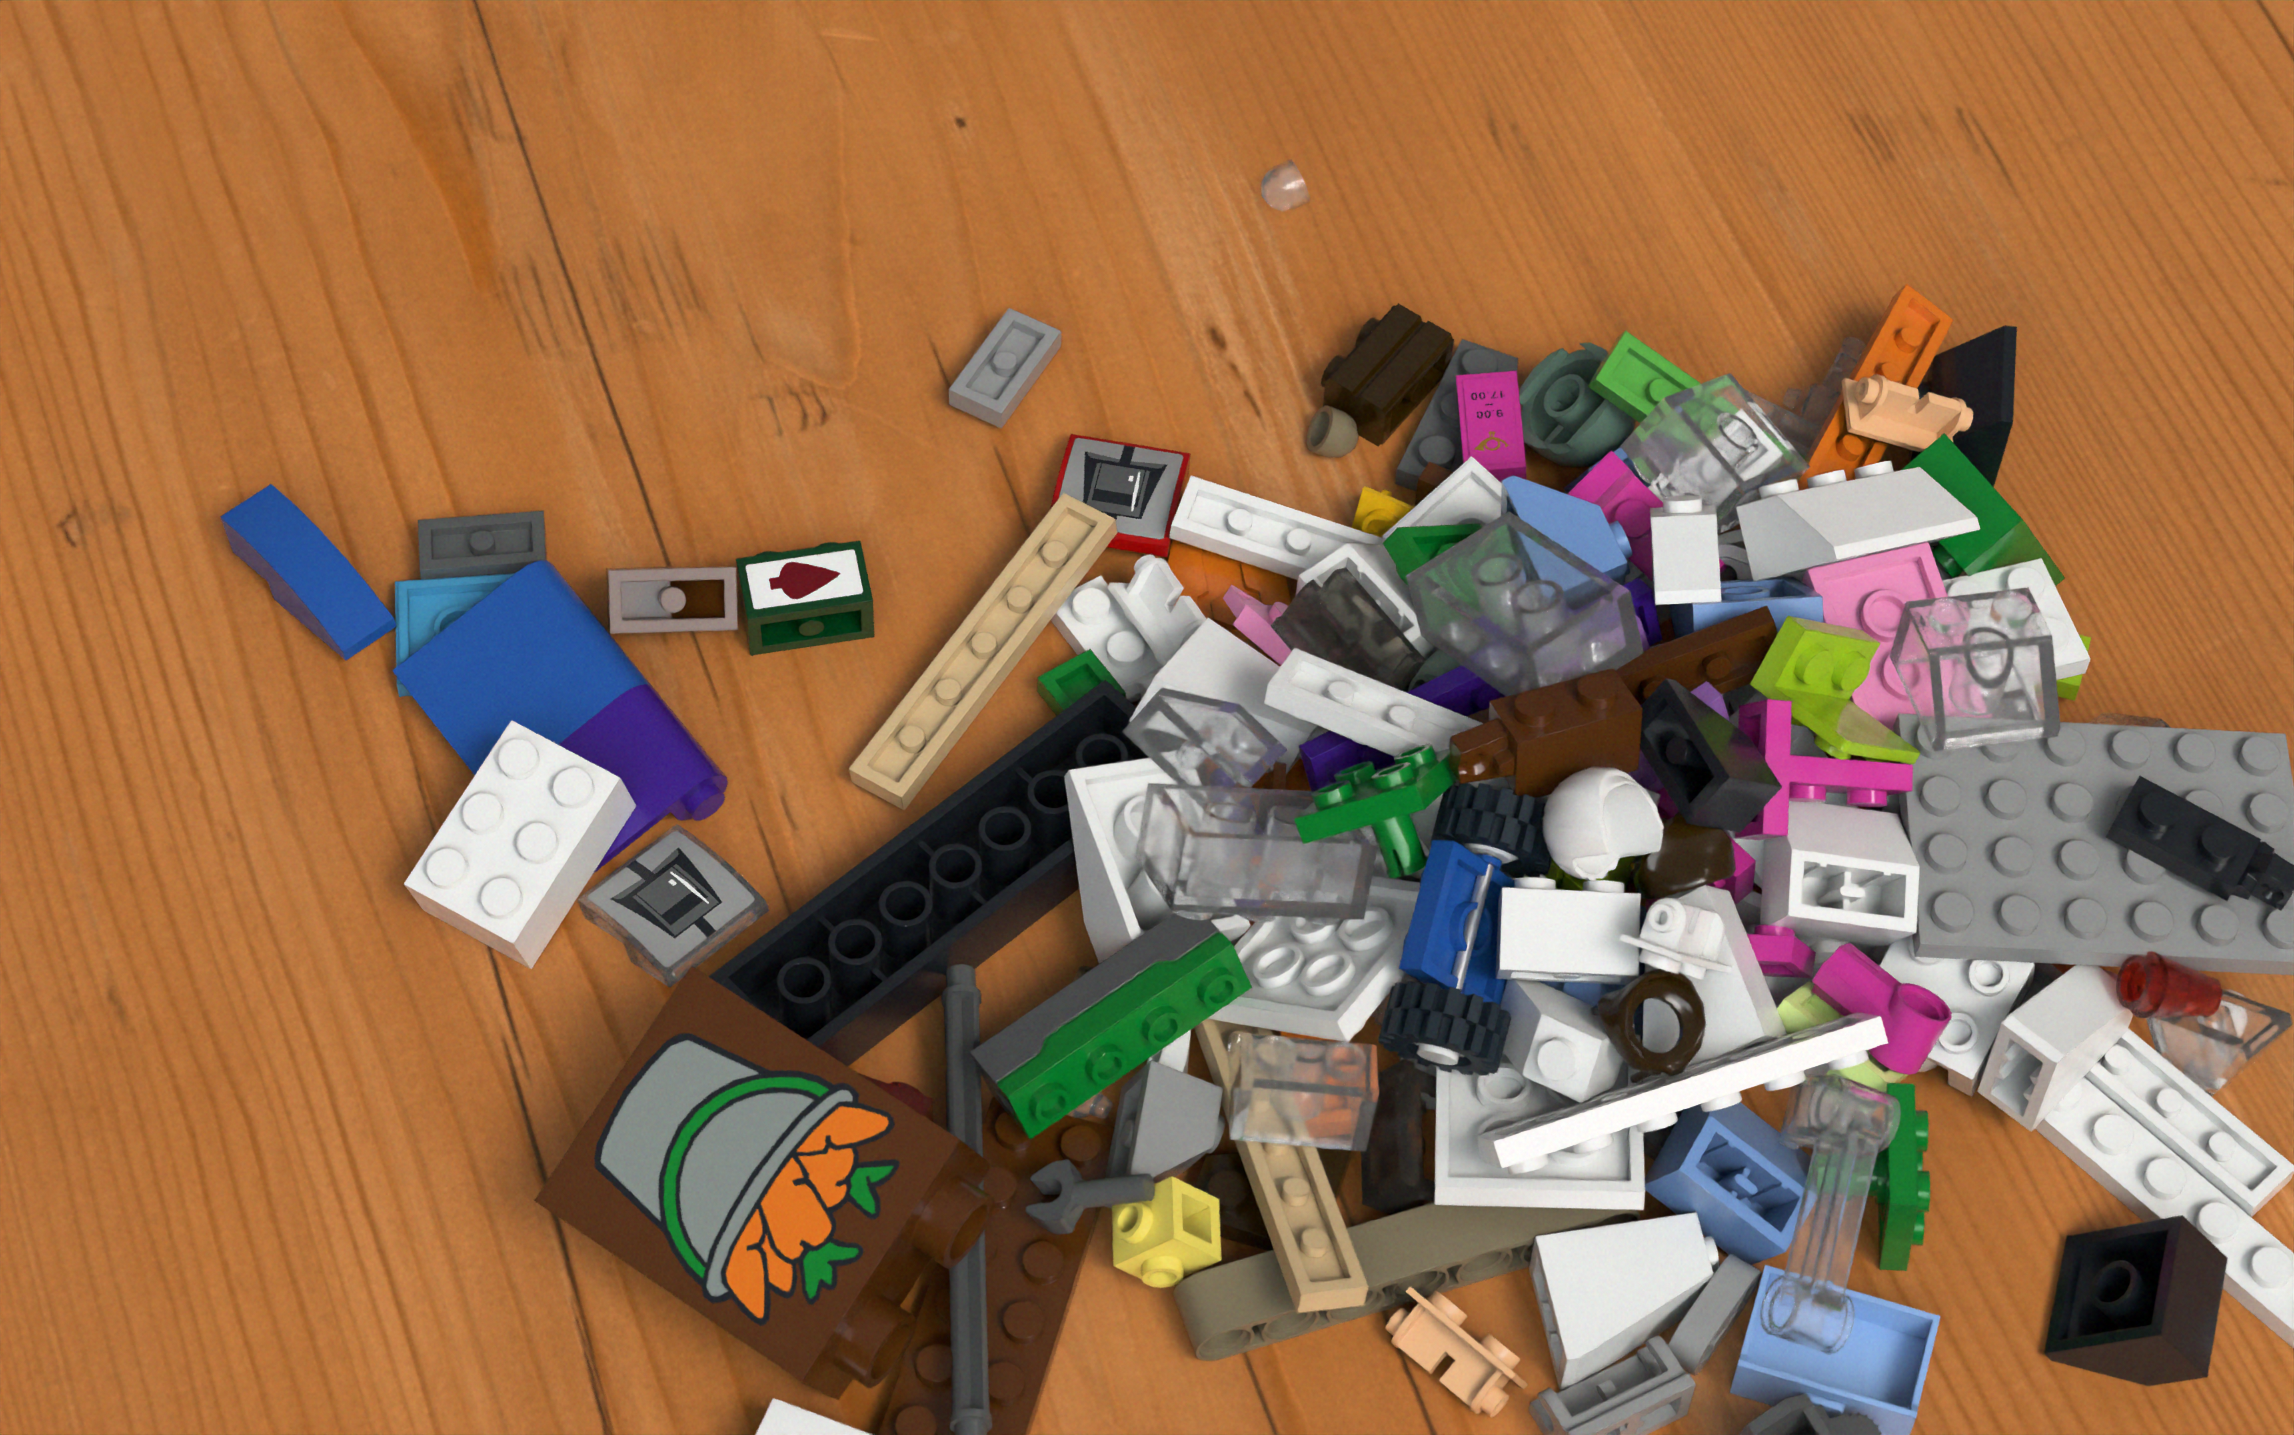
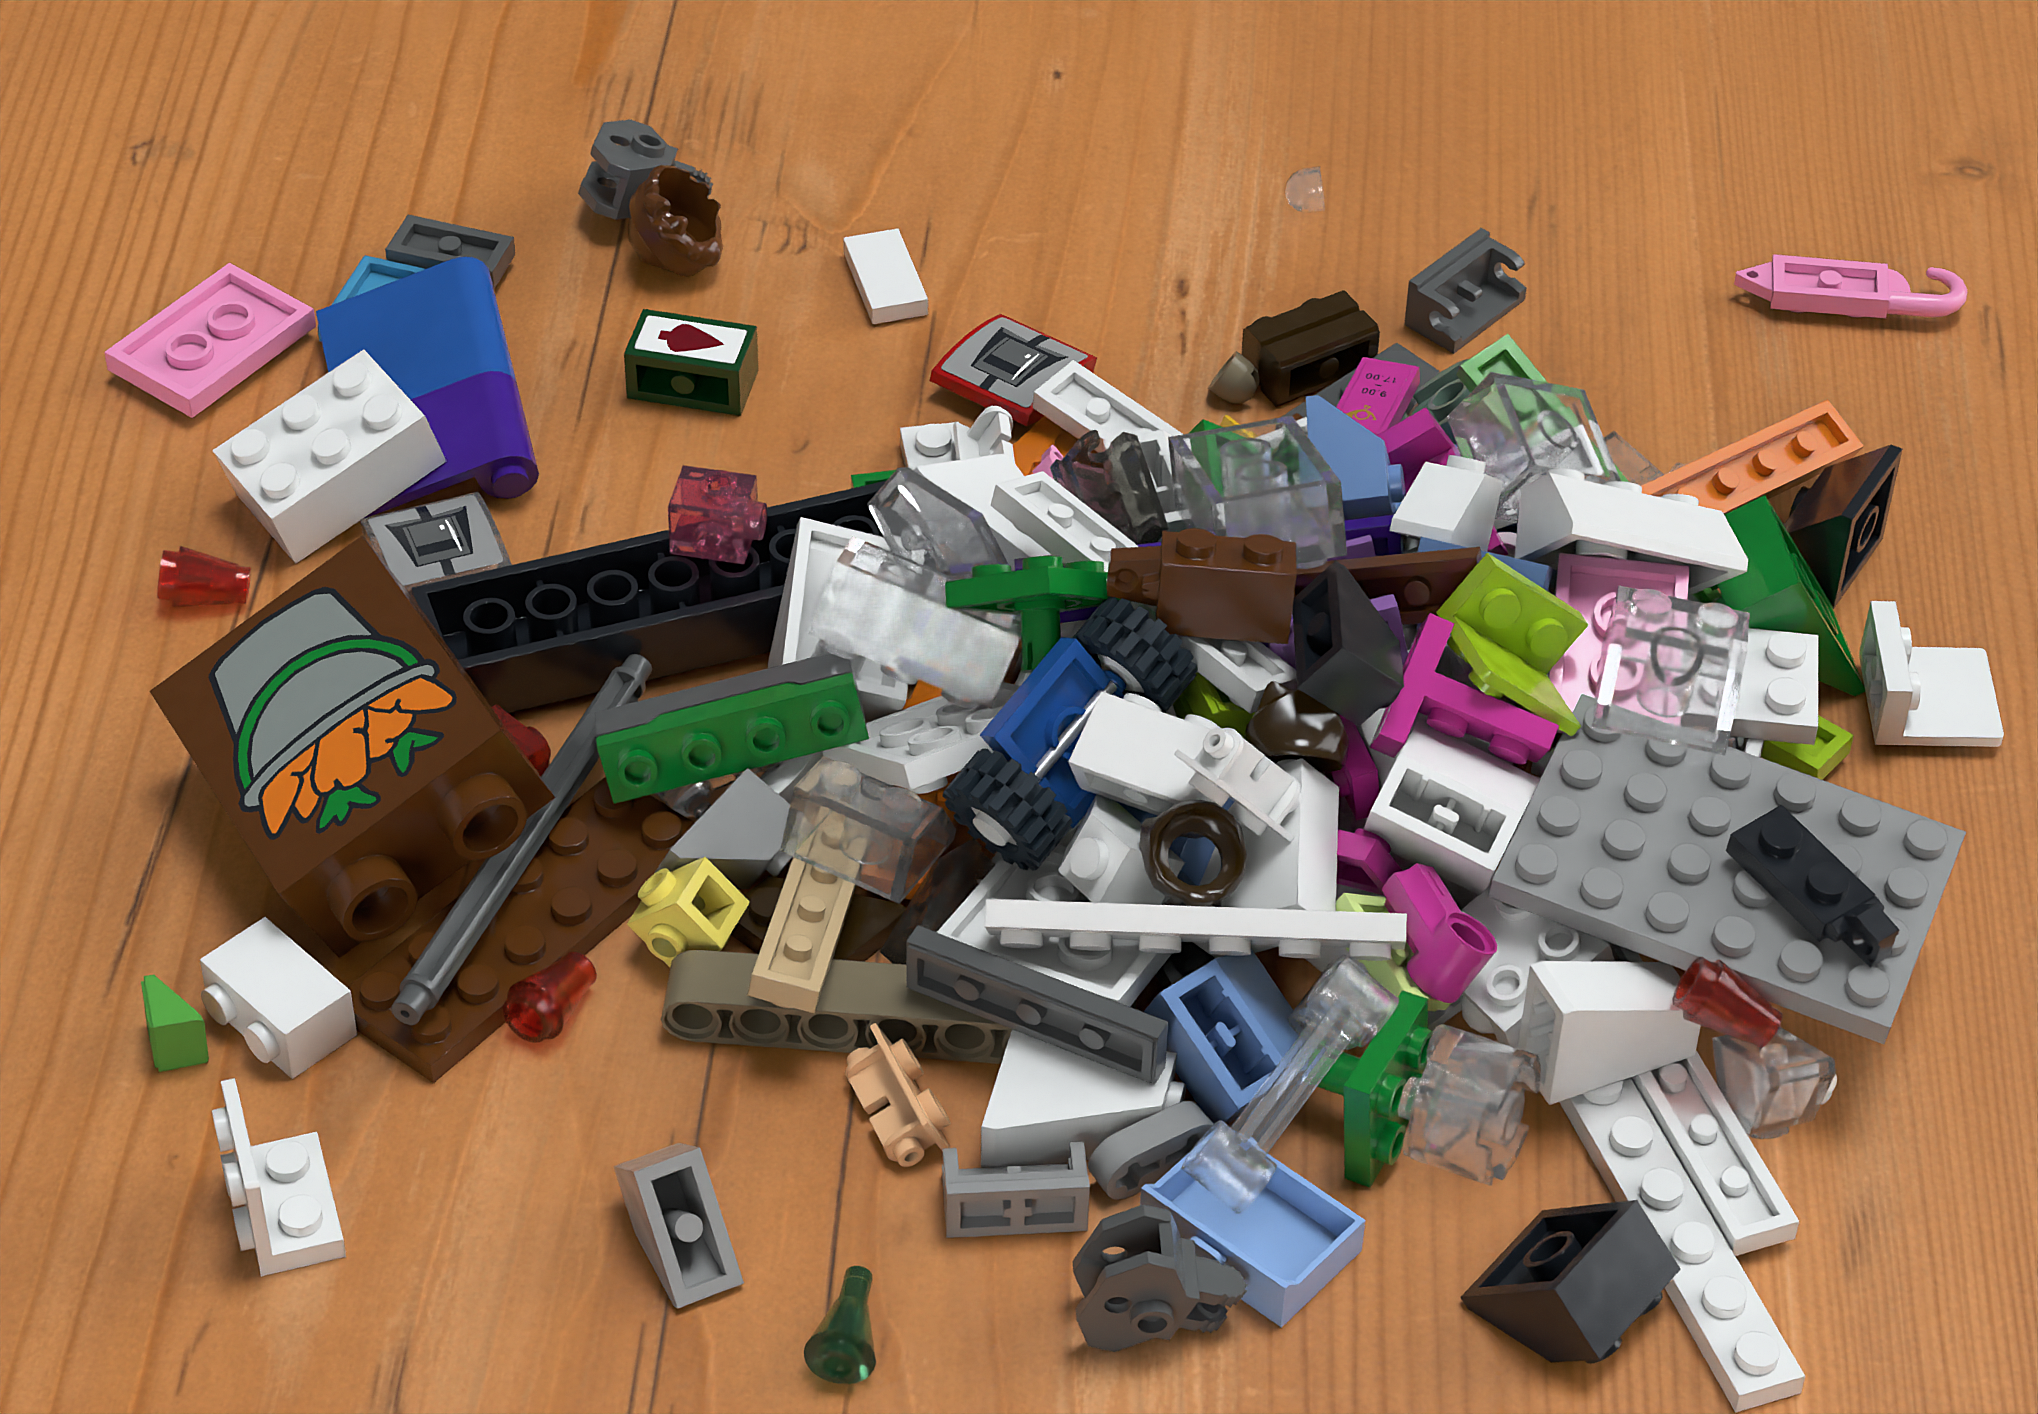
camera: 25 degrees right, 10 degrees down
(296, 740) = (210, 339): none -> bright pink plate
(306, 572) = (293, 223): blue slope -> none
(459, 1028) = (201, 579): none -> clear red cone
(633, 393) = (626, 166): none -> dark grey hinge
(671, 599) = (566, 321): slope -> none
(703, 442) = (675, 222): none -> reddish brown hair
(930, 425) = (885, 276): none -> white tile
(980, 794) = (715, 514): none -> clear pink brick
(983, 651) = (846, 424): tan plate -> none
(1005, 368) = (974, 250): light grey plate -> none
(1077, 1194) = (623, 849): dark grey bar -> none
(1077, 1372) = (545, 1000): none -> clear red cone
(1496, 260) = (1464, 292): none -> dark grey hinge
(1560, 1218) = (1036, 1004): none -> dark grey tile
(1598, 820) = (1214, 661): white hair -> none
(1836, 135) = (1847, 288): none -> bright pink plate
(1897, 416) = (1732, 477): light nougat hinge -> none
(1975, 1163) = (1469, 1104): none -> clear brick
(2122, 562) = (1925, 691): none -> white bracket

